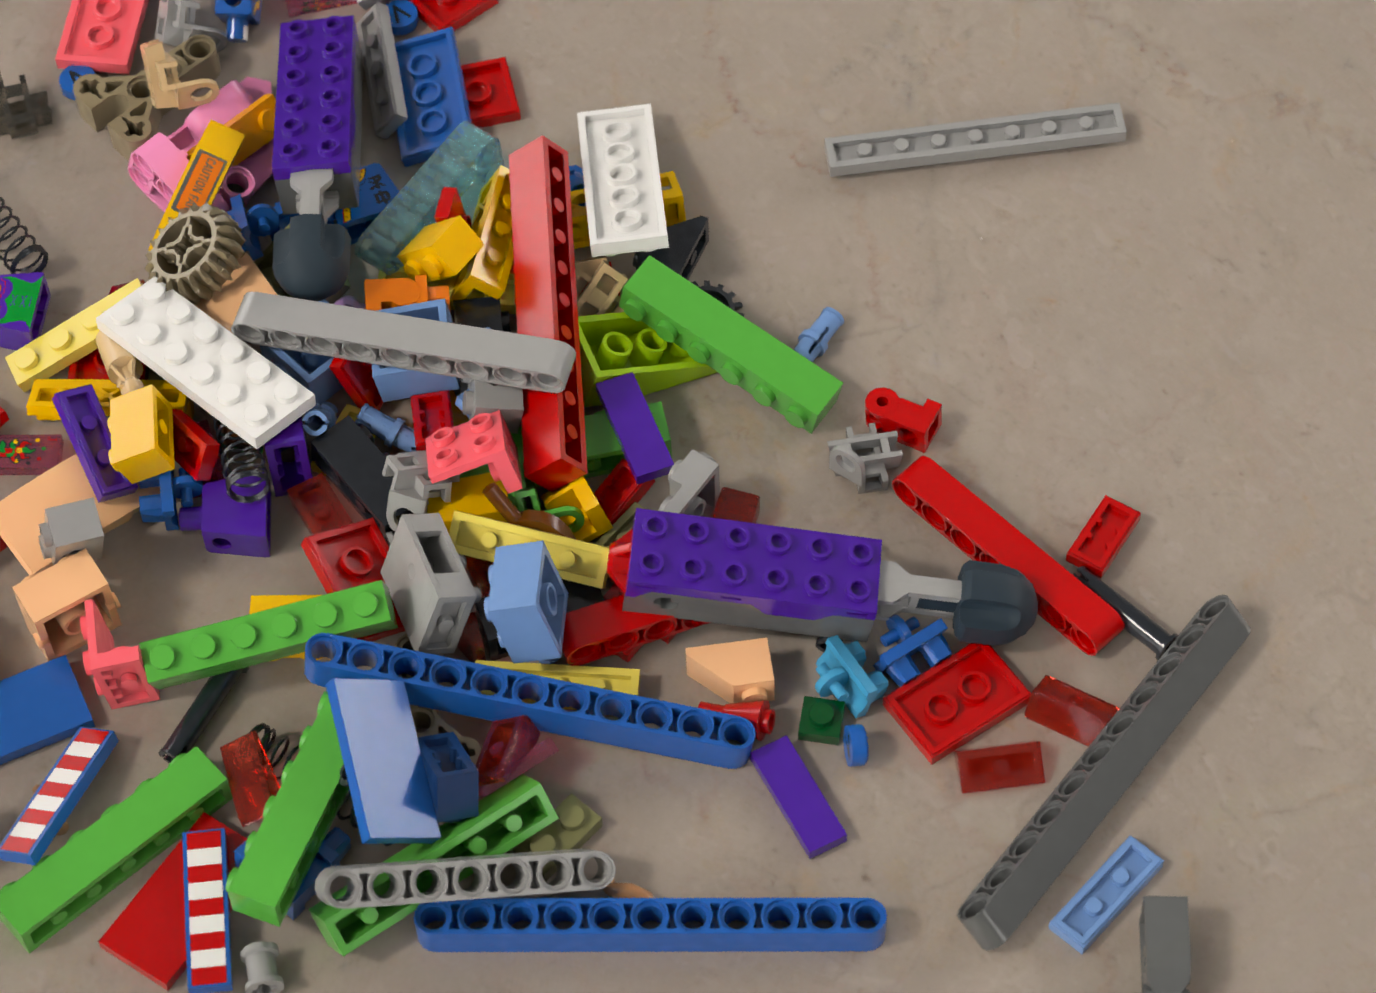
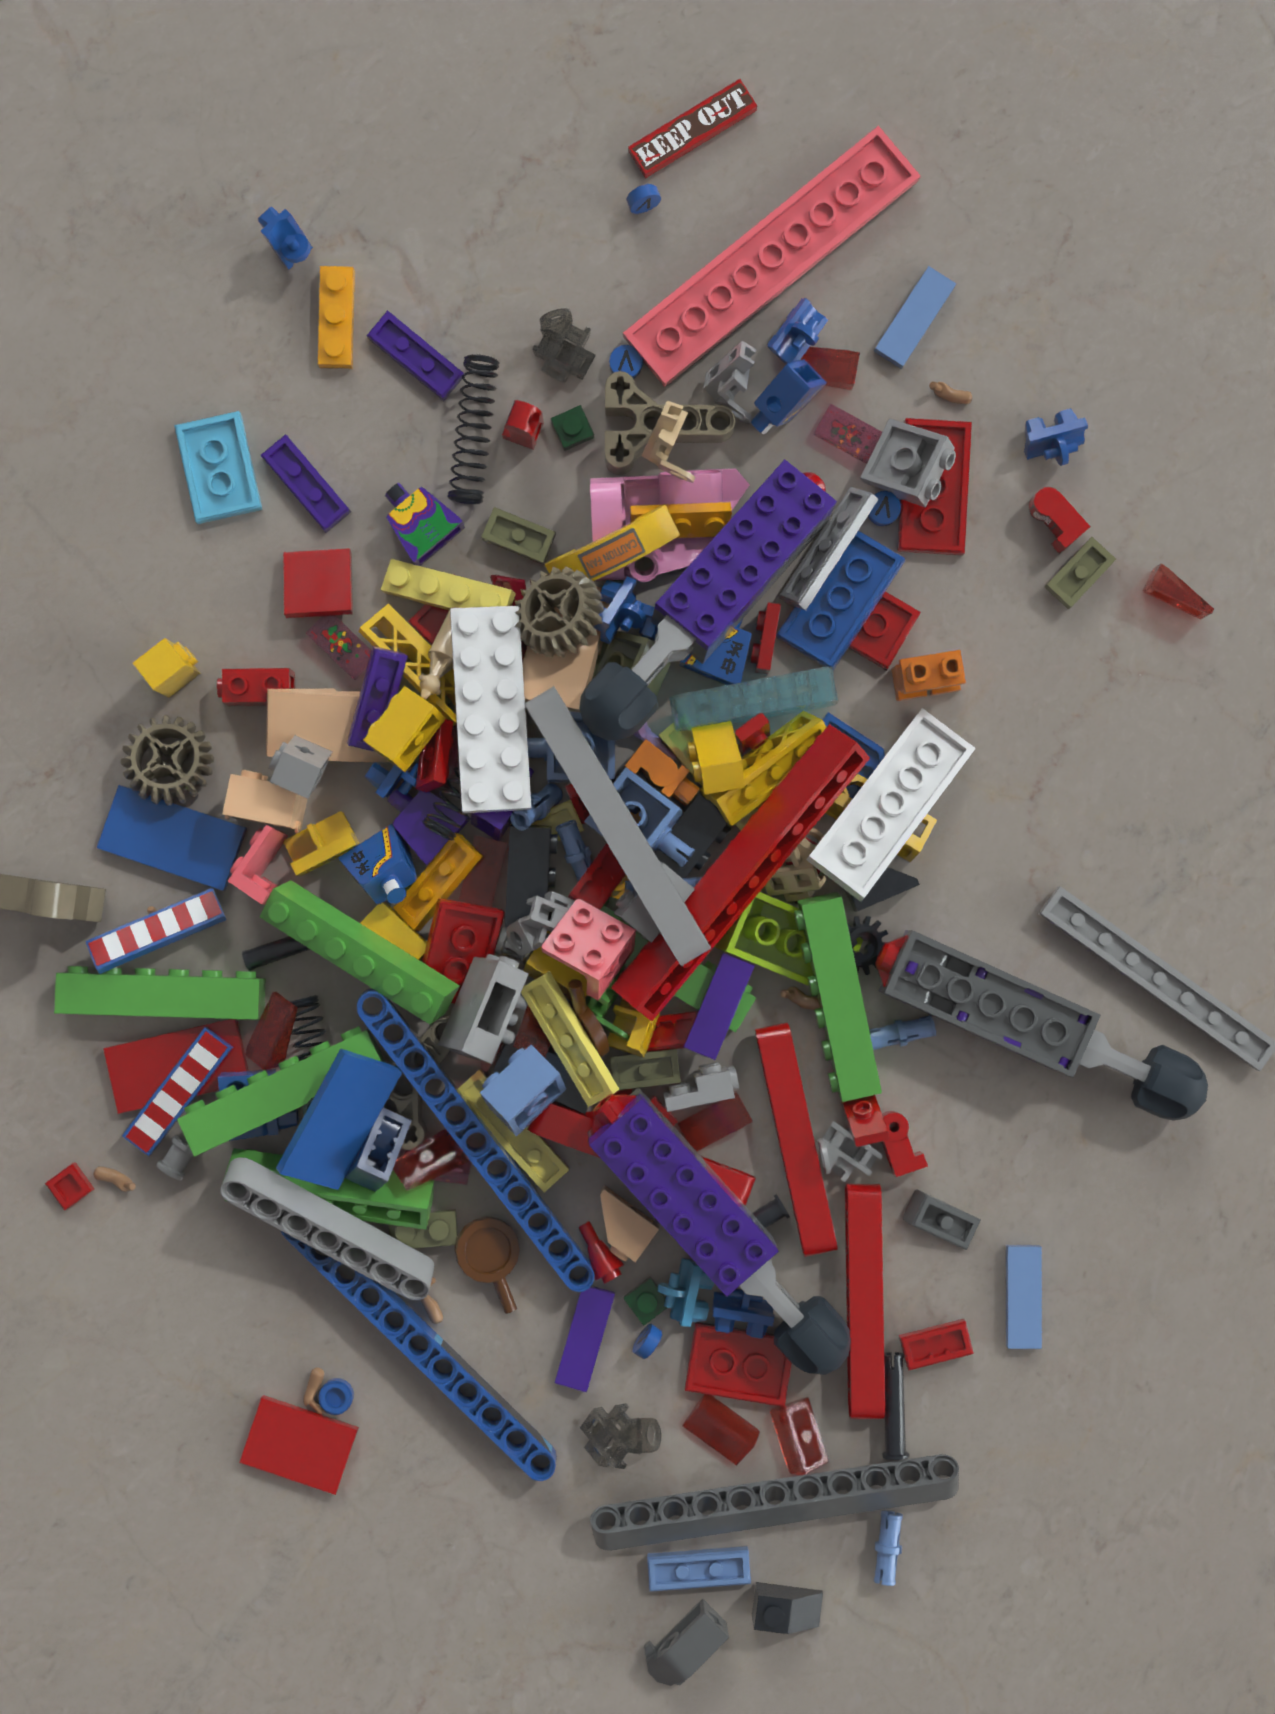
camera: 35 degrees right, 30 degrees up
(32, 178) = (523, 424): none -> red leg
(76, 156) = (572, 428): none -> dark green plate
(105, 257) = (518, 535): none -> olive plate
(152, 609) = (320, 843): none -> yellow panel
(223, 574) = (382, 866): none -> blue torso
(286, 528) = (437, 881): none -> light orange plate
(391, 157) = (767, 623): none -> red plate
(557, 81) = (933, 672): none -> orange hips
(639, 801) = (488, 1253): none -> reddish brown piece
(705, 389) = (800, 998): none -> medium nougat piece
(813, 485) = (796, 1139): none -> red beam
(849, 412) = (865, 1120): none -> red plate
(900, 237) = (1031, 1022): none -> dark grey piece
(920, 822) = (629, 1439): none -> clear smoke piece
(999, 447) = (941, 1219): none -> dark grey slope
(1134, 444) = (1023, 1296): none -> medium blue tile
(1212, 851) = (785, 1608): none -> black slope
(1245, 724) = (888, 1548): none -> medium blue pin

